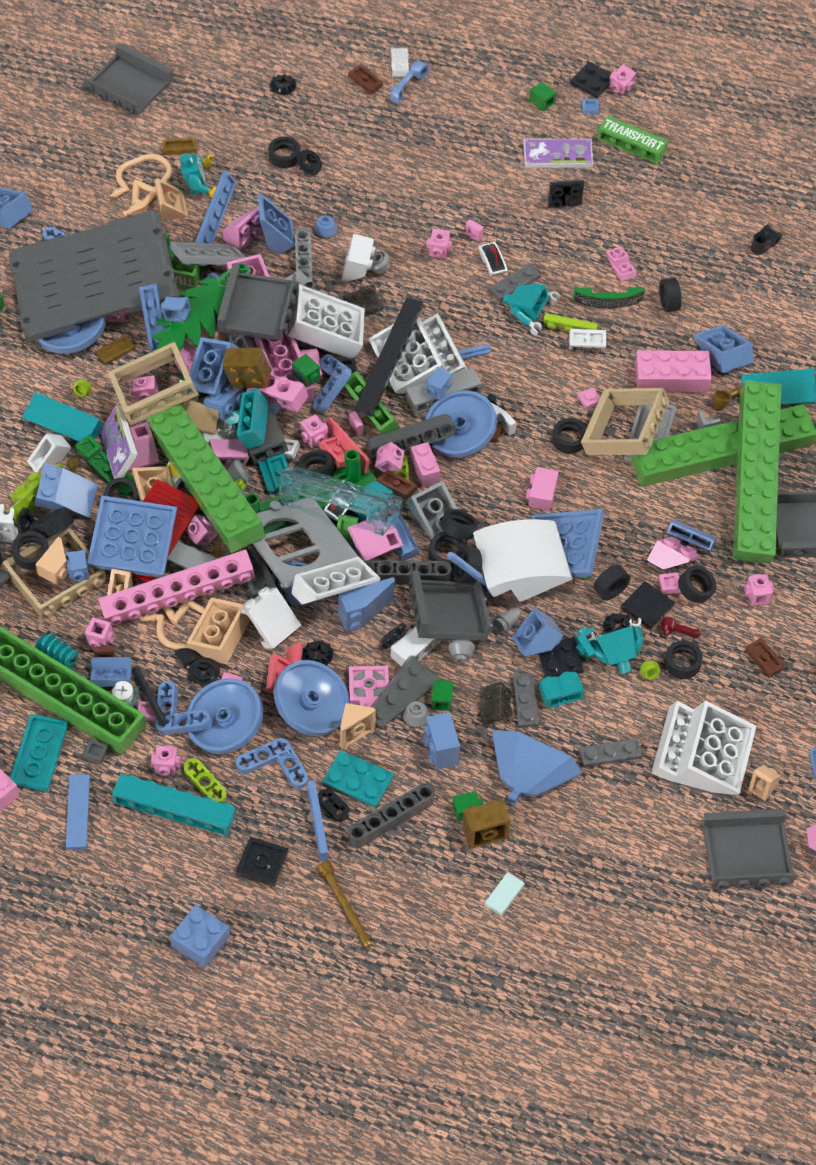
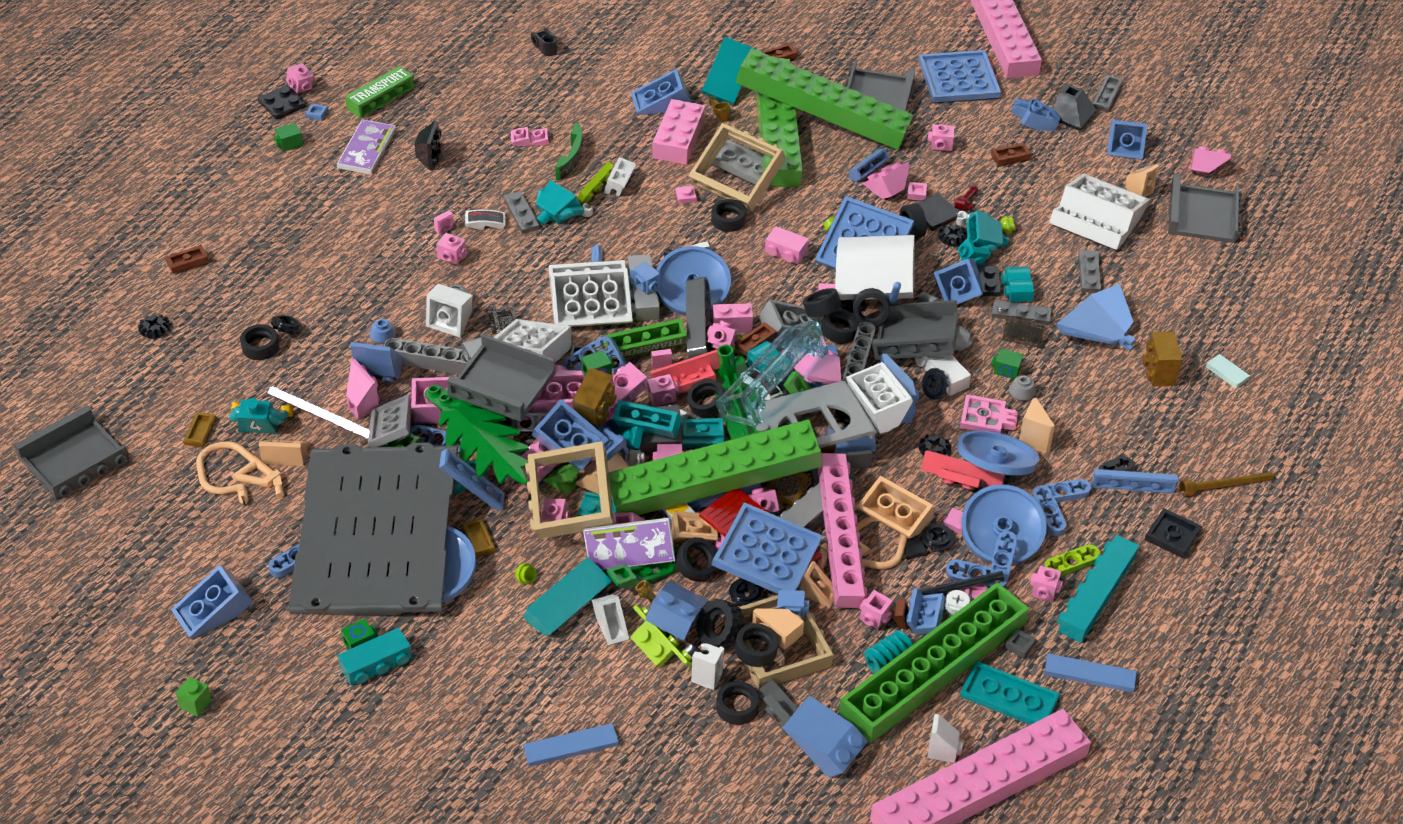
camera: 75 degrees left, 10 degrees down
(176, 309) = (478, 447): medium blue window -> none
(200, 936) = (1256, 593): medium blue brick -> none
(271, 616) = (895, 459): white panel -> none
(358, 779) = (1087, 446): teal plate -> none
(389, 357) = (603, 302): black tile -> none
(395, 807) = (1137, 427): dark grey beam -> none
(399, 61) = (172, 229): white slope -> none
(405, 687) = (999, 388): dark grey wing -> none
(419, 70) = (224, 238): medium blue piece -> none
(442, 741) = (1066, 369): medium blue brick -> none
(463, 801) = (1135, 373): green brick -> none
(670, 294) = (589, 119): black tyre -> none
(683, 672) = (1004, 193): black tyre -> none
(690, 591) = (926, 171): black tyre -> none
(703, 422) = (748, 125): light grey panel -> none

